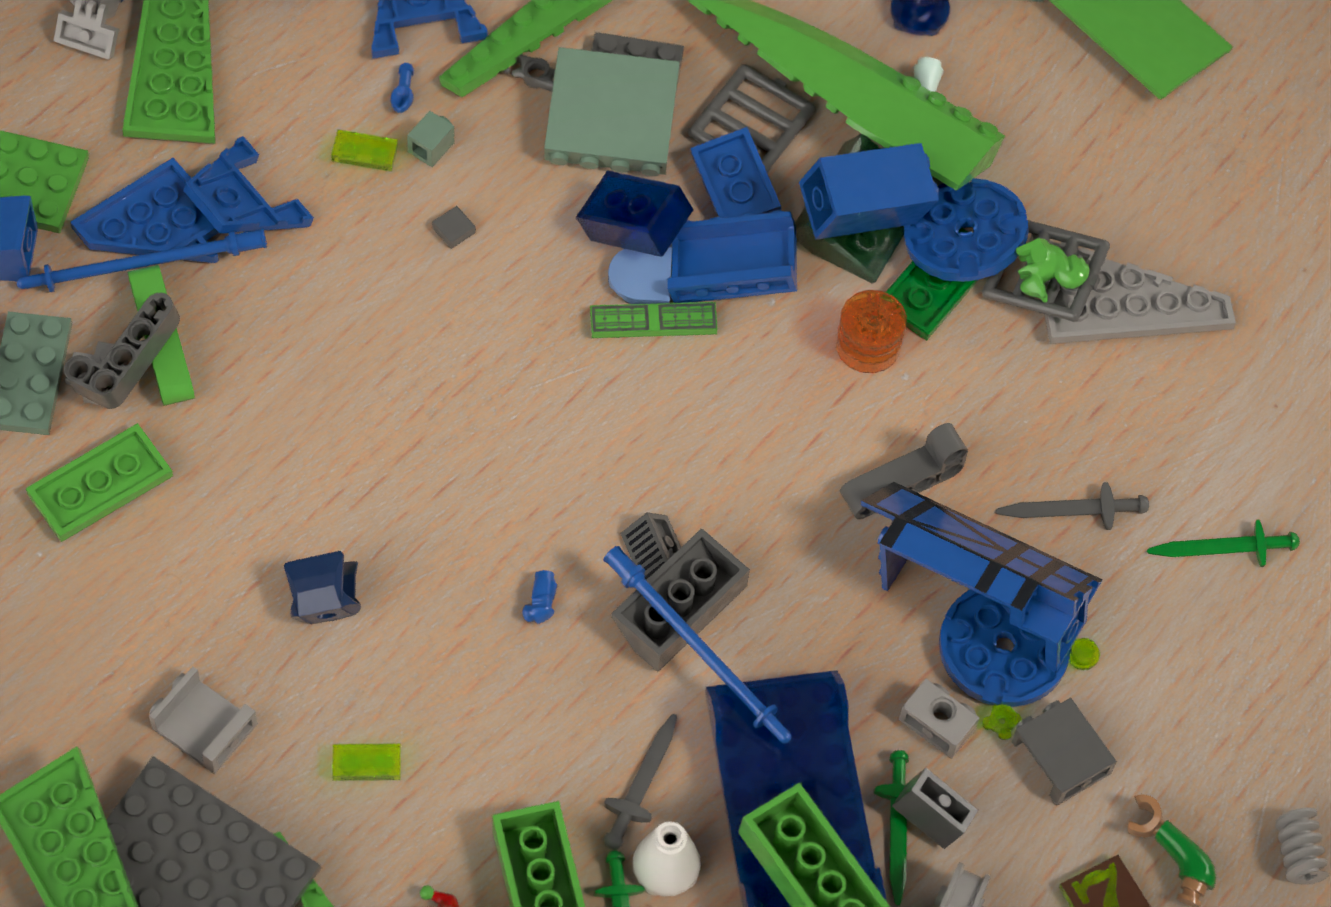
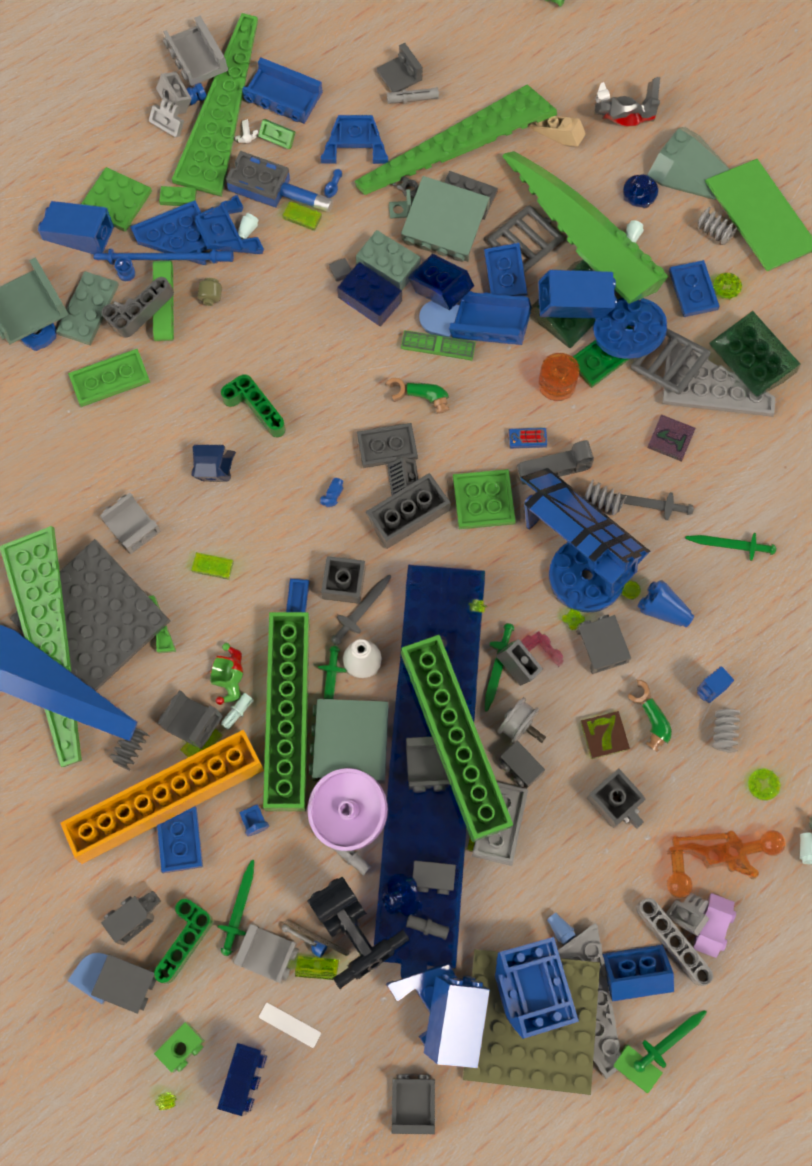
camera: 20 degrees right, 10 degrees up
(79, 294) = (125, 269): none -> blue wheel
(137, 156) = (177, 195): none -> bright green plate
(233, 38) = (247, 137): none -> white piece
(239, 304) = (209, 291): none -> olive head
(275, 182) = (247, 225): none -> light aqua cone
(285, 23) = (276, 134): none -> bright green plate
(294, 104) = (268, 182): none -> piece
(371, 481) = (258, 407): none -> green beam
(431, 138) = (340, 216): sand green brick -> none
(516, 257) = (369, 294): none -> clear blue brick
(526, 779) = (297, 595): none -> blue tile
(532, 198) = (388, 259): none -> sand green brick
(538, 102) = (406, 205): none -> sand green bracket
(601, 736) = (343, 579): none -> dark grey brick
(611, 499) = (386, 444): none -> dark grey plate
(634, 577) = (382, 493): blue bar -> none
(665, 398) = (435, 394): none -> piece
(799, 556) = (483, 499): none -> bright green plate
(842, 729) = (477, 605): none -> clear neon green plate
(845, 442) = (528, 438): none -> tile
(943, 734) = (541, 620): light grey brick -> none
(966, 769) = (532, 641): none -> clear pink bracket
(1001, 513) = (605, 498): none -> light grey piece
(1049, 262) = (671, 357): bright green animal -> none
(1050, 149) = (694, 288): none -> blue plate
(1059, 43) = (716, 227): none -> light grey piece
(1080, 395) = (671, 437): none -> tile
(1098, 124) = (727, 279): none -> clear neon green gear
(1147, 664) = (665, 605): none -> blue cone
(1181, 234) = (755, 355): none -> clear green slope
(1263, 775) = (714, 685): none -> blue brick

